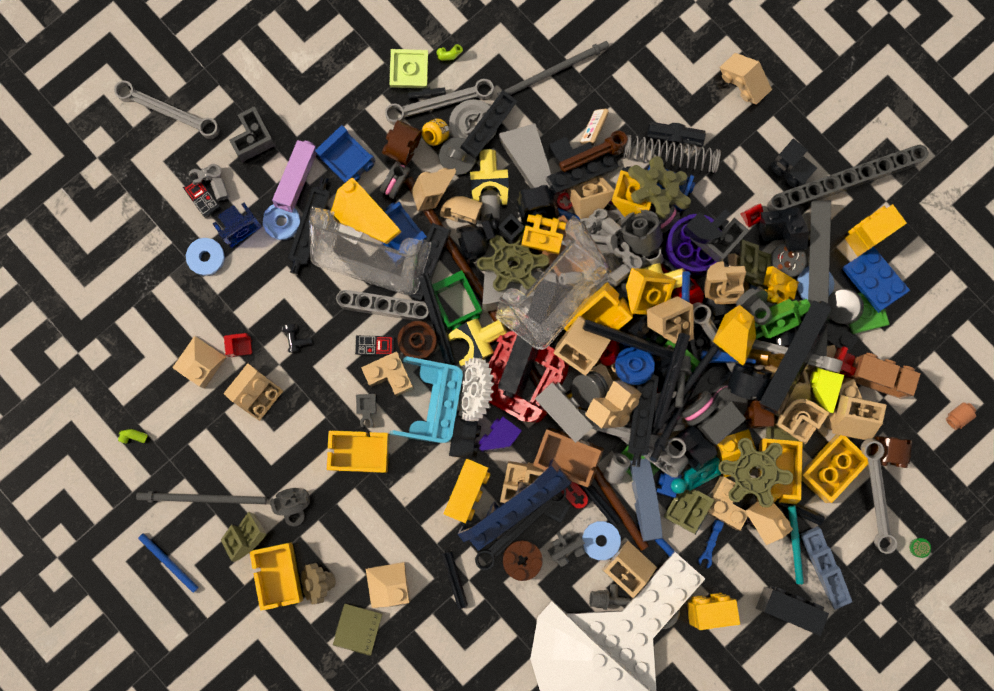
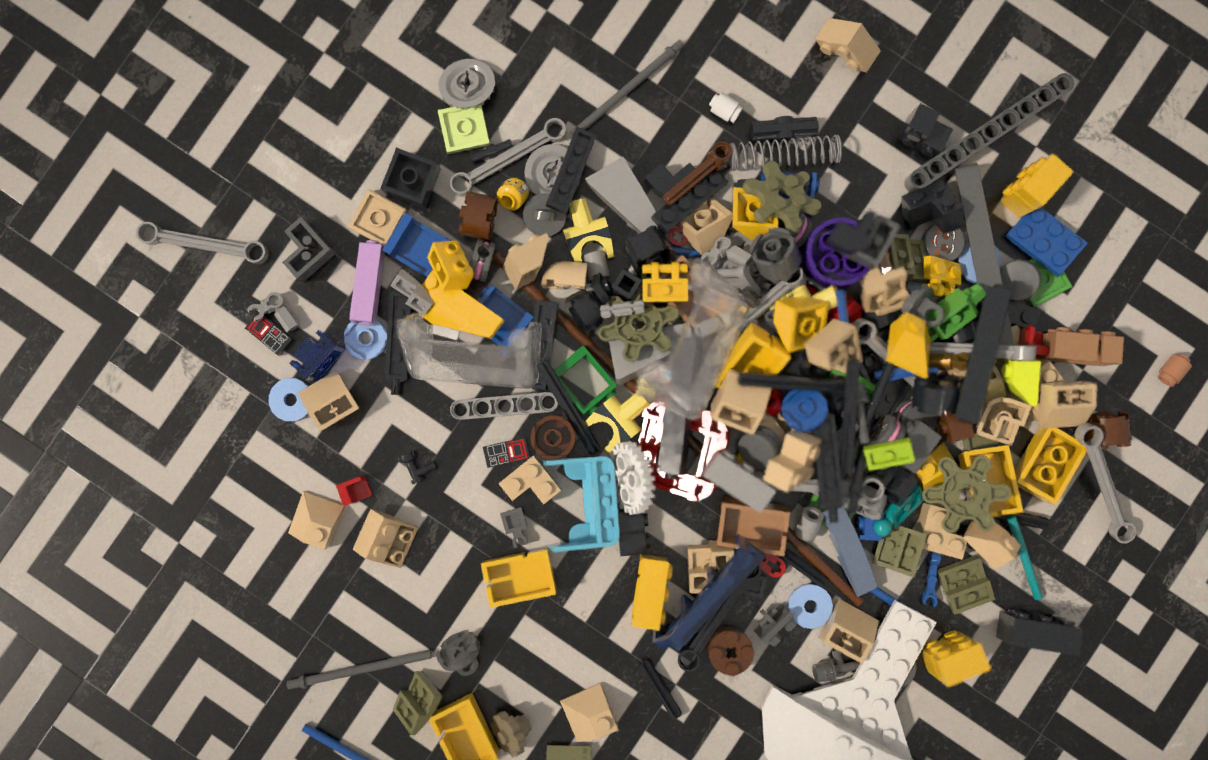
camera: 10 degrees left, 5 degrees up
(133, 434) = (264, 618): lime arm -> none
(236, 264) = (328, 400): none -> tan slope
(316, 124) = (376, 217): none -> tan plate
(334, 196) = (417, 295): none -> light grey slope
(354, 98) = (410, 178): none -> black brick
(368, 176) = (450, 265): none -> yellow brick
(412, 27) = (455, 77): none -> light grey gear
(449, 55) = (500, 102): lime arm -> none
(501, 437) = (673, 523): dark purple slope -> none
(502, 246) = (622, 308): none -> light grey axle
(594, 126) = (690, 142): slope -> none
(630, 261) = (767, 304): light grey bar -> none
(631, 105) = (725, 107): none -> white brick
(697, 420) = (889, 454): none -> lime plate
(739, 555) = (965, 584): none -> olive slope
(752, 215) = (891, 199): red slope -> none
(826, 568) = (1063, 574): sand blue slope -> none
(920, 547) = (1160, 526): green tile -> none

